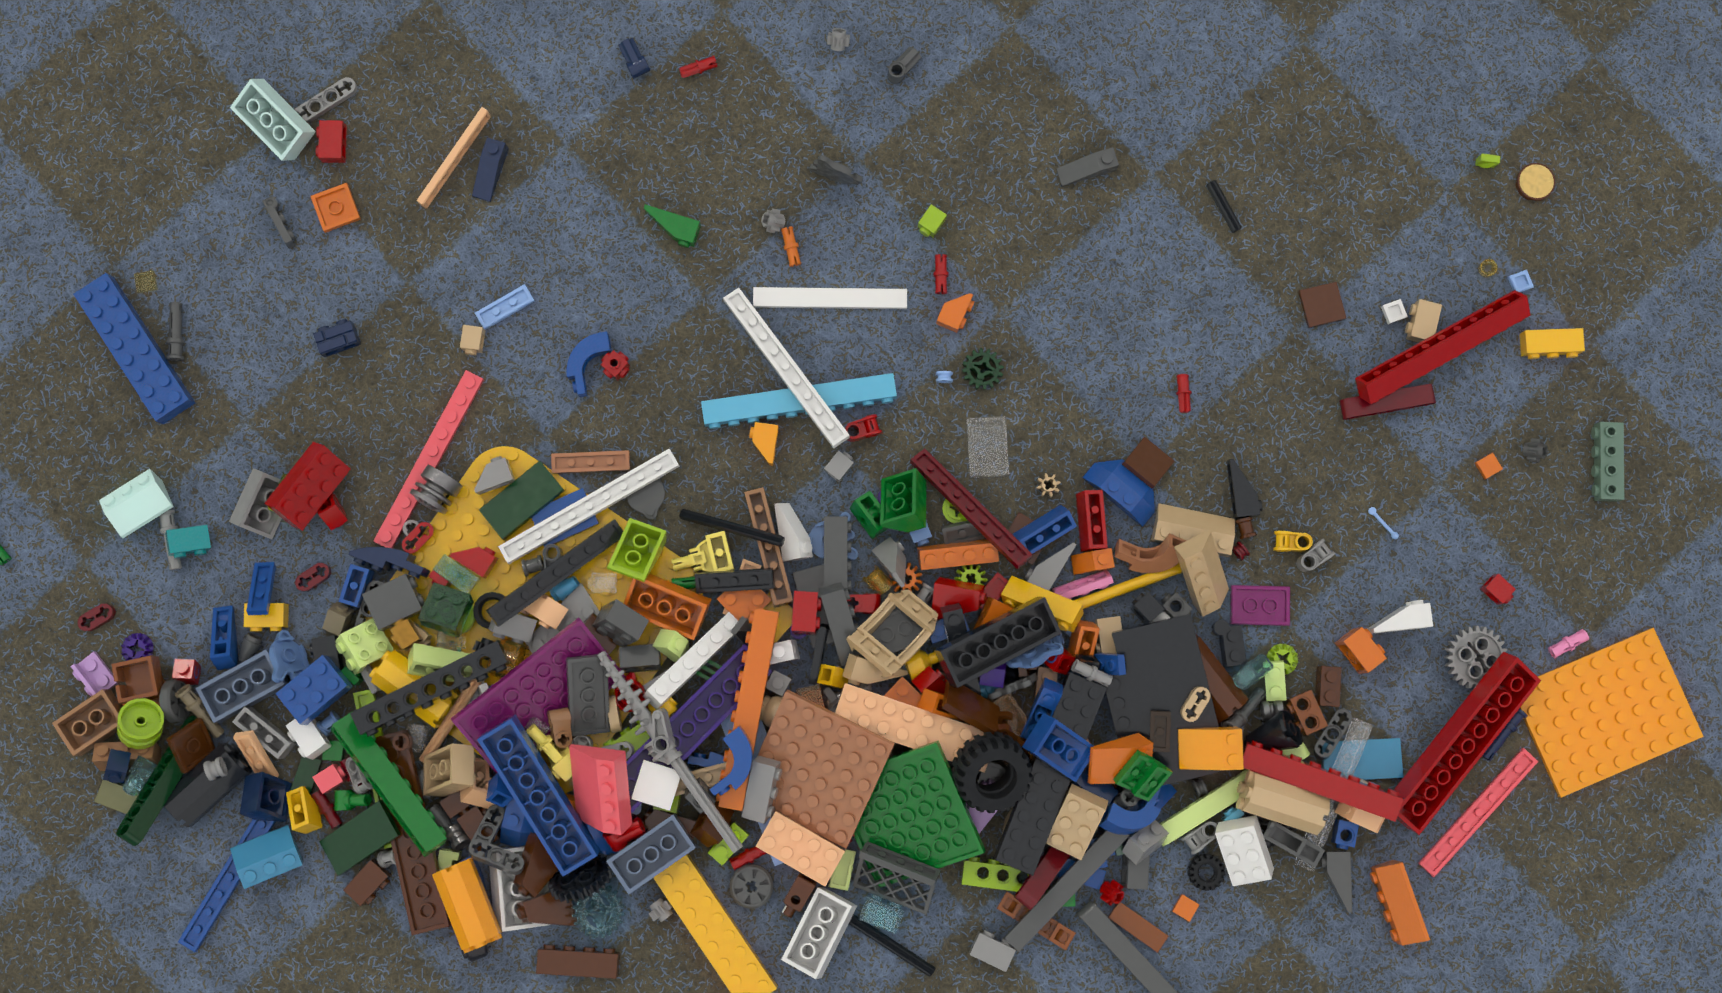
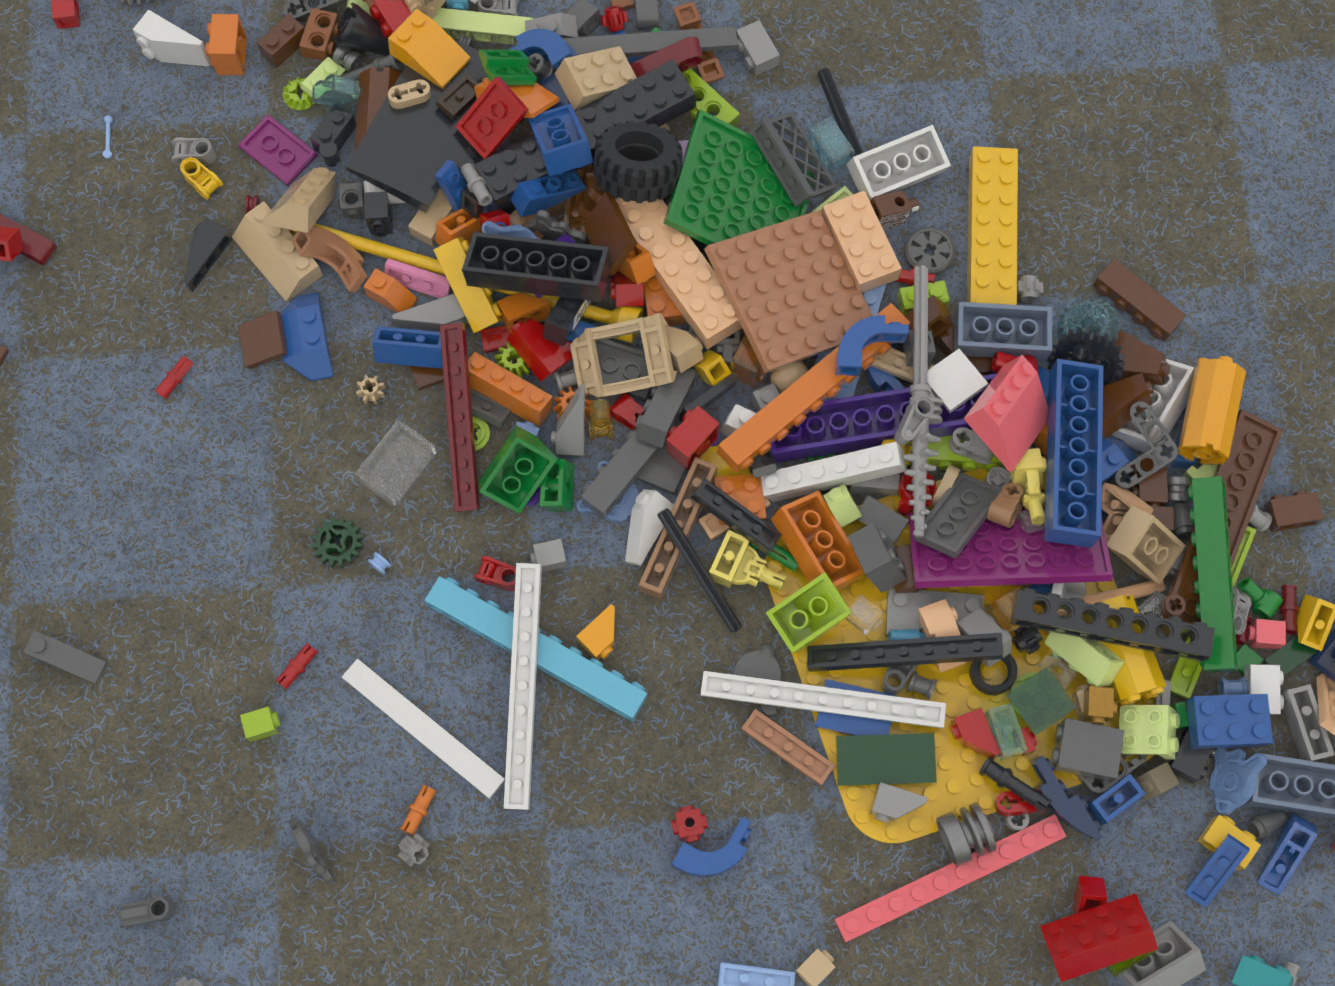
camera: 140 degrees left, 10 degrees down
(309, 573) = (1152, 853): dark red beam -> none
(360, 838) = (1274, 554): dark green tile -> none
(435, 545) = (1005, 778): none -> black pin
(498, 792) = (1112, 489): blue brick -> none
(680, 228) = (514, 920): green slope -> none
(761, 789) = (867, 303): light grey brick -> none
(953, 313) = (317, 616): orange slope -> none
(1091, 520) = (359, 326): red brick -> none
(1119, 727) = (492, 117): none -> red plate
(1245, 528) = (230, 218): reddish brown bush -> none

